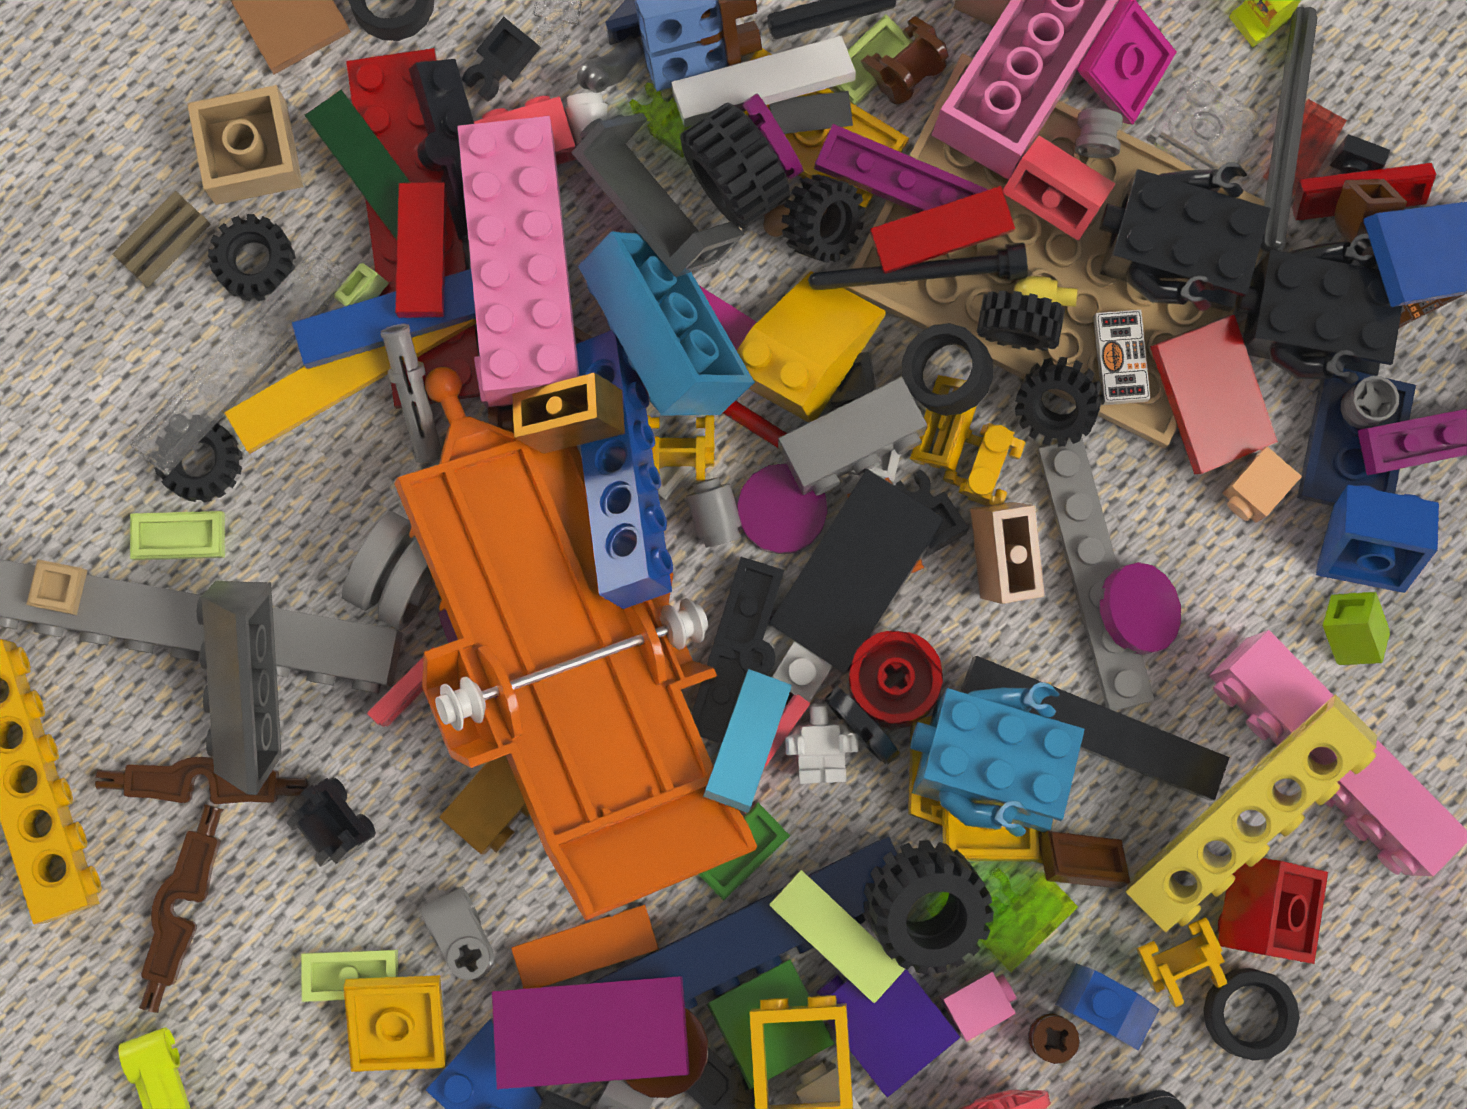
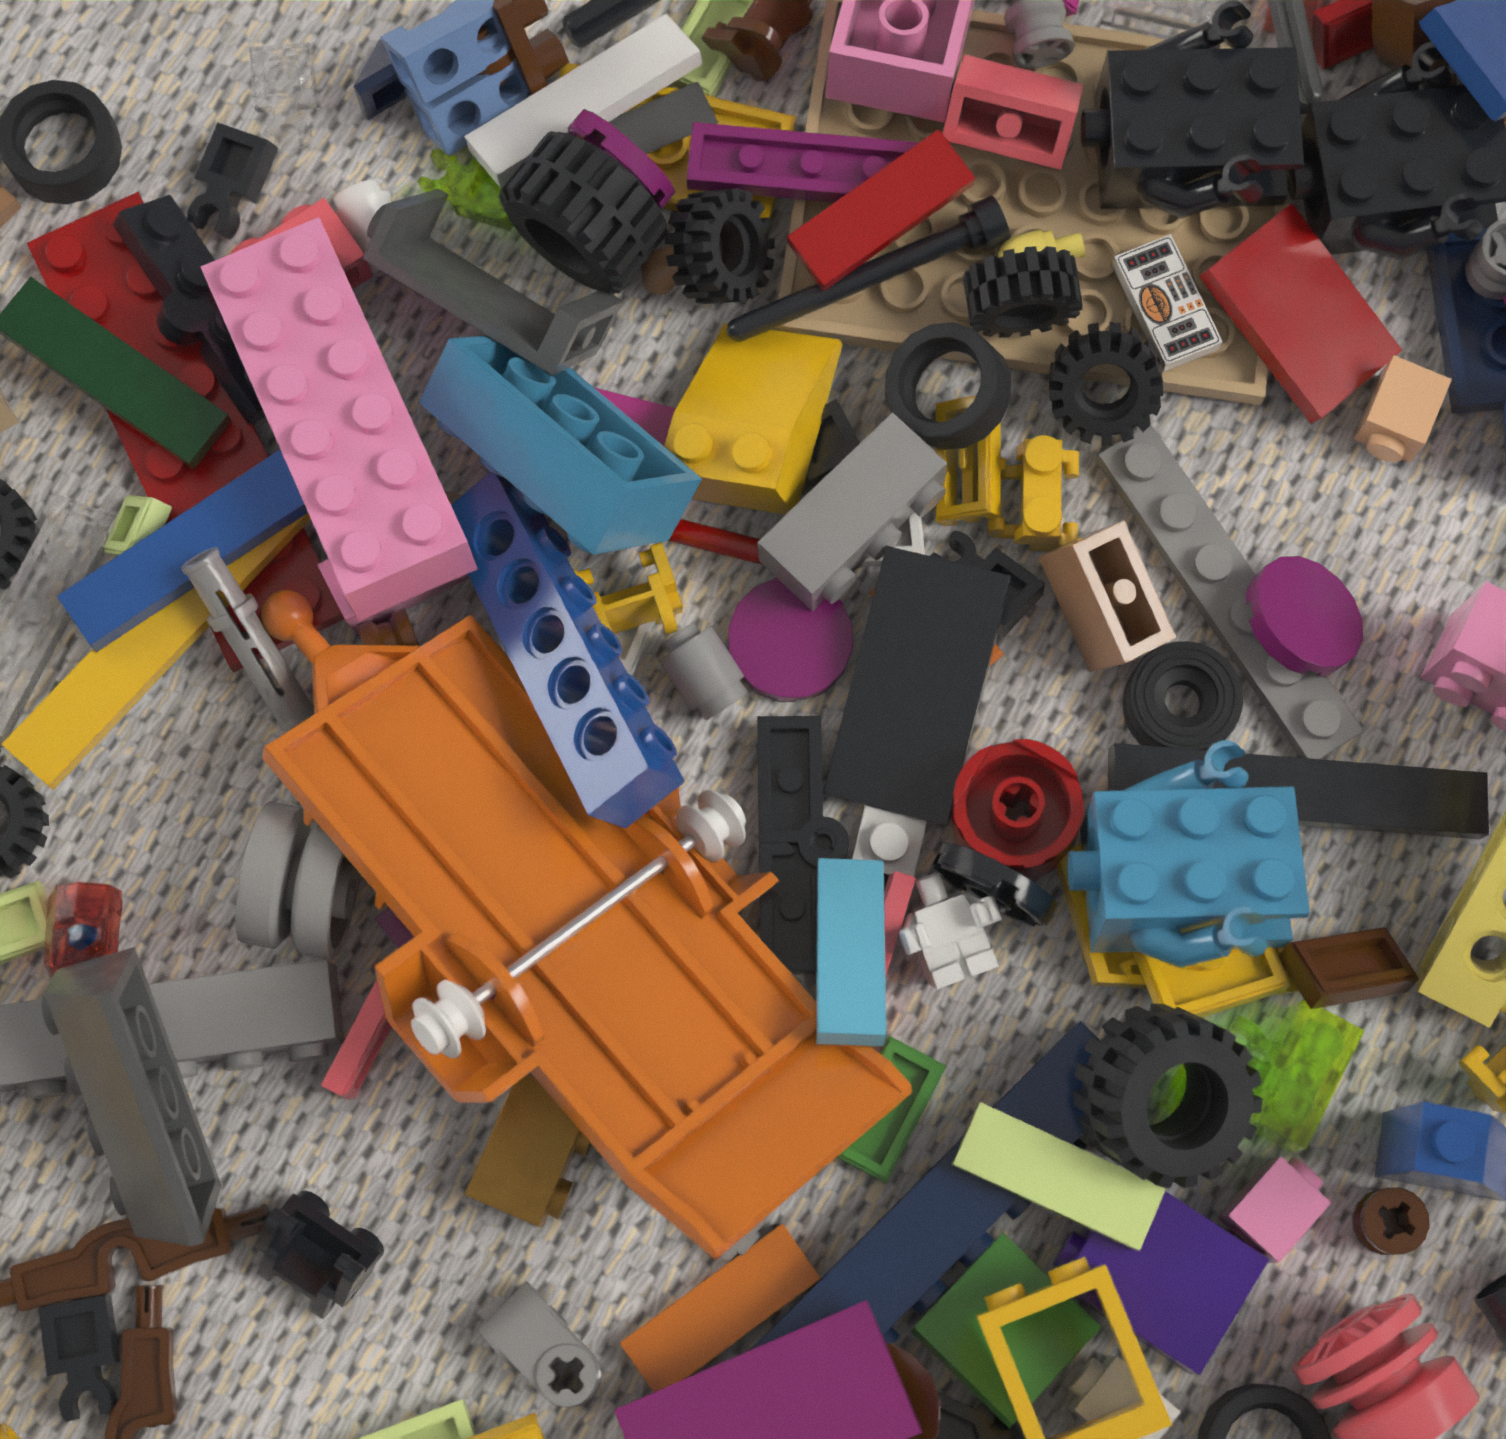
camera: 15 degrees left, 5 degrees down
(156, 828) = (78, 1341): none -> black plate
(240, 553) = (81, 924): none -> clear red rock
(421, 250) = (202, 447): red tile -> none
(568, 413) = (468, 591): pearl gold brick -> none
(611, 68) = (380, 145): flat silver arm -> none
(1052, 618) = (1190, 666): none -> black tyre

